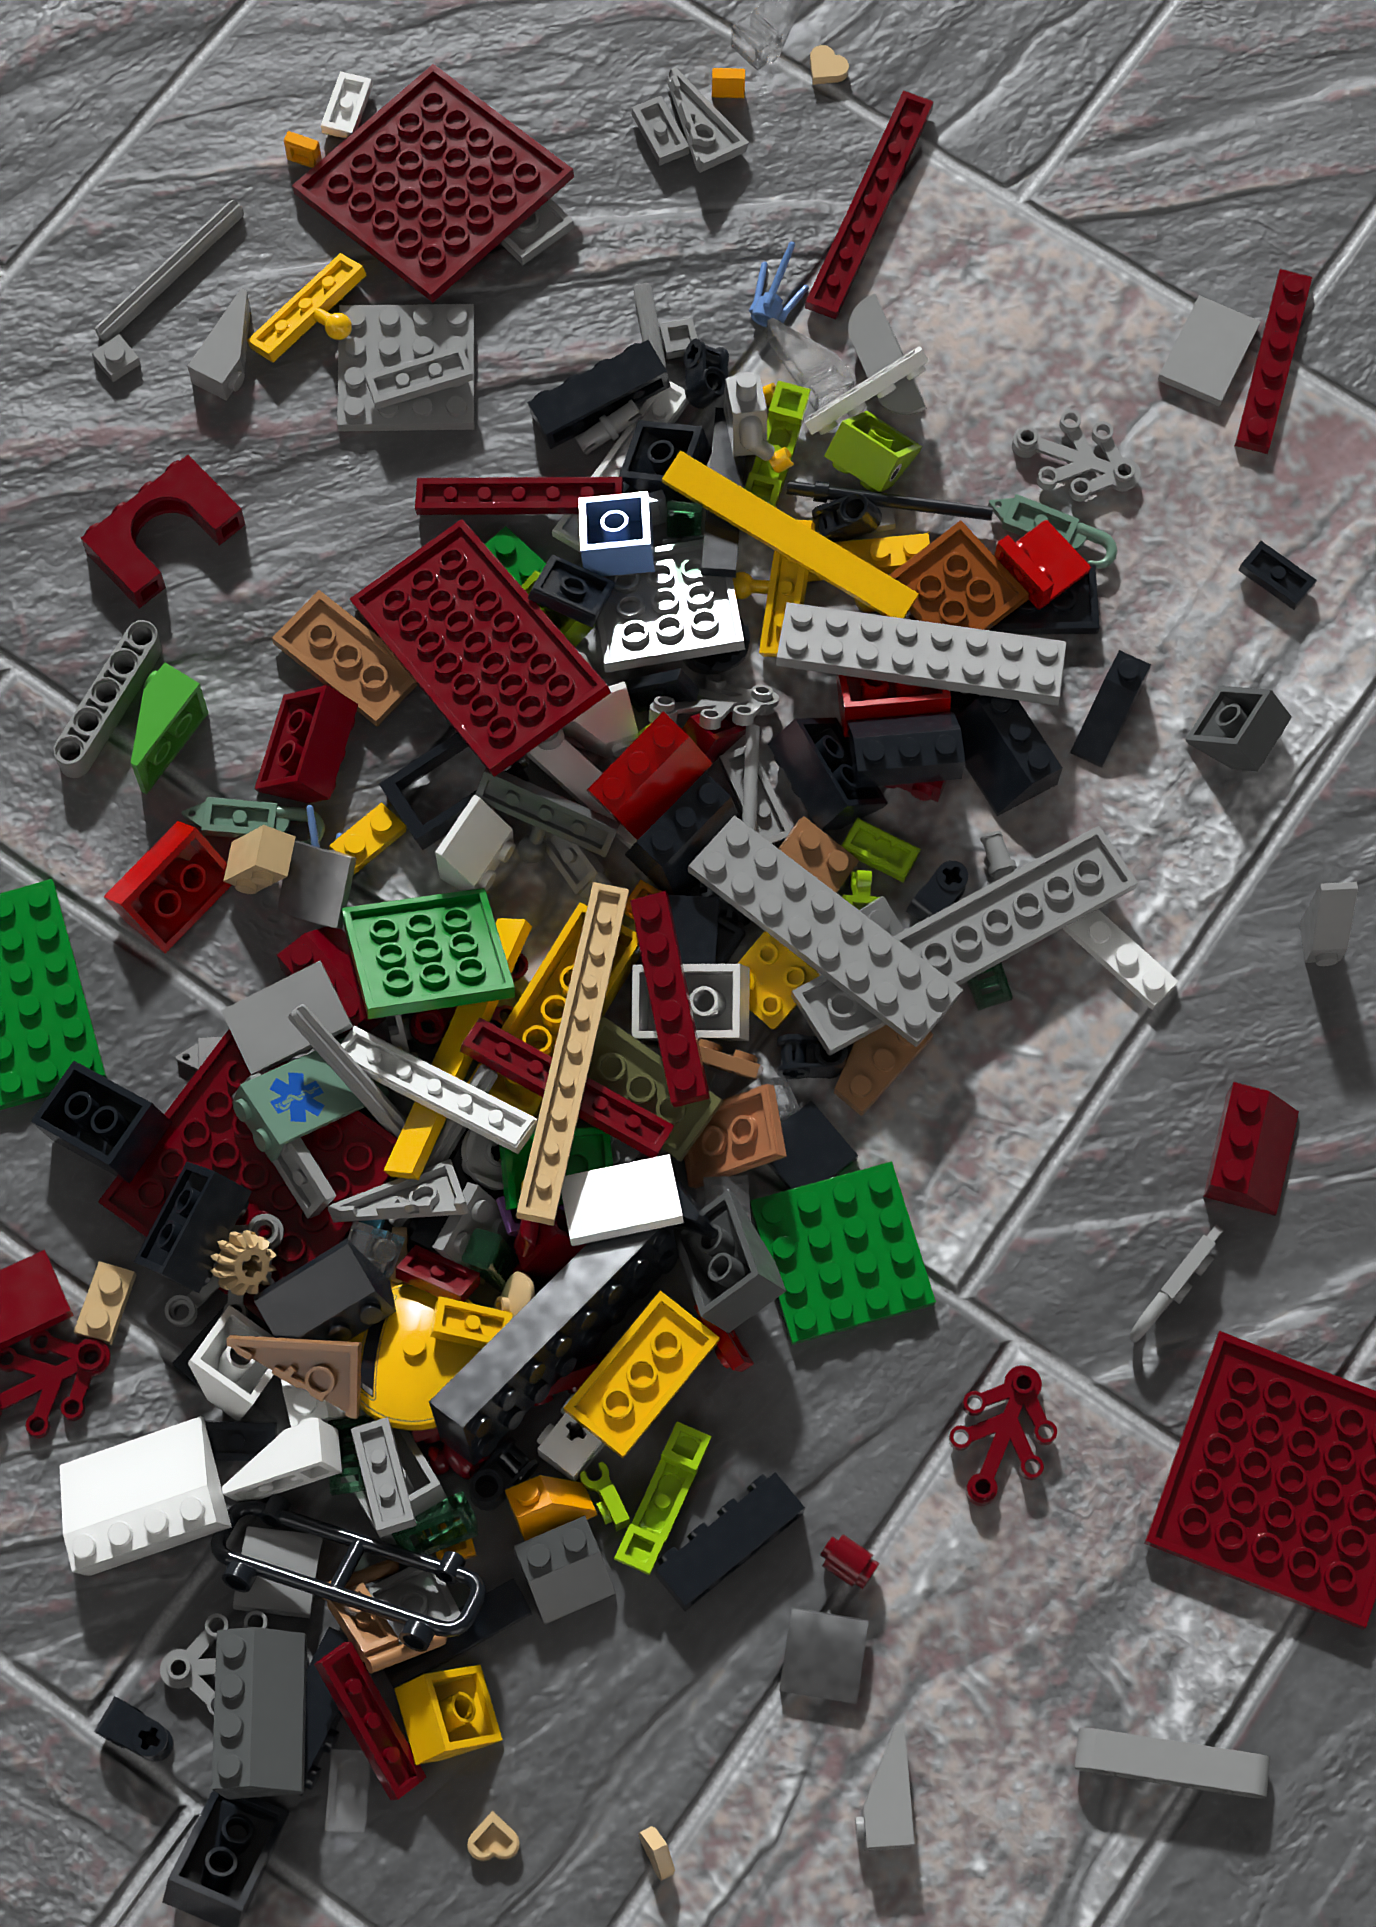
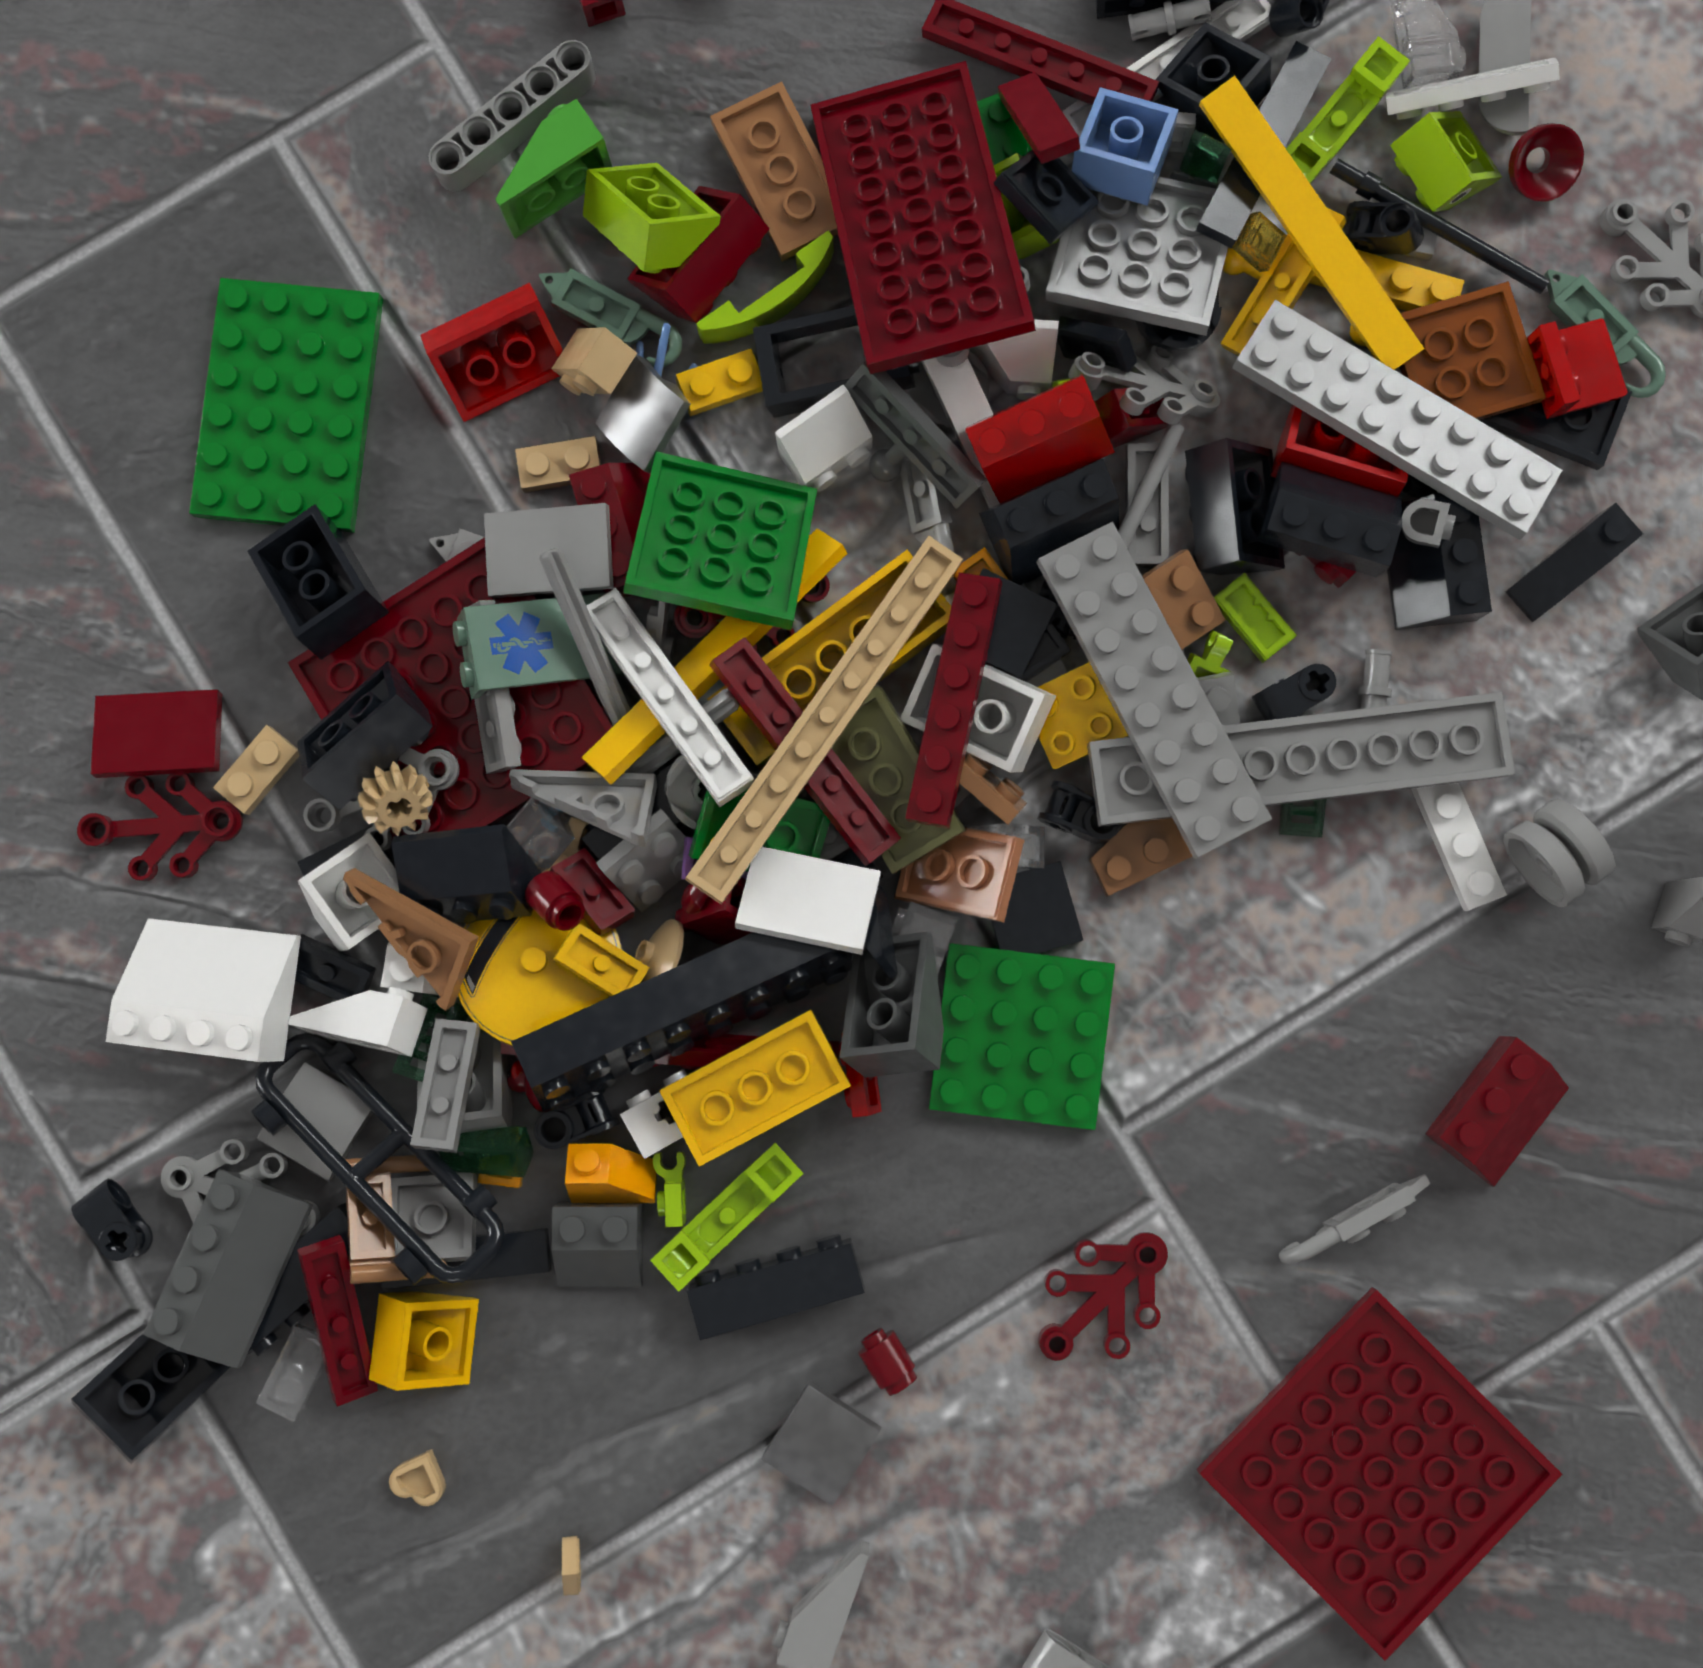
camera: 30 degrees right, 15 degrees up
(255, 730) = (647, 214): none -> lime slope
(256, 956) = (551, 463): none -> tan plate
(357, 789) = (727, 324): none -> lime slope
(413, 1286) = (555, 901): none -> dark red brick
(490, 1257) = (652, 895): clear green slope -> none
(540, 538) = (1039, 117): none -> dark red tile
(746, 419) = (1325, 67): light grey torso -> none
(755, 564) = (1259, 241): none -> clear yellow tile
(962, 419) = (1560, 167): none -> dark red piece
(980, 720) = (1427, 522): none -> light grey plate
(1200, 928) = (1559, 852): none -> light grey wheel

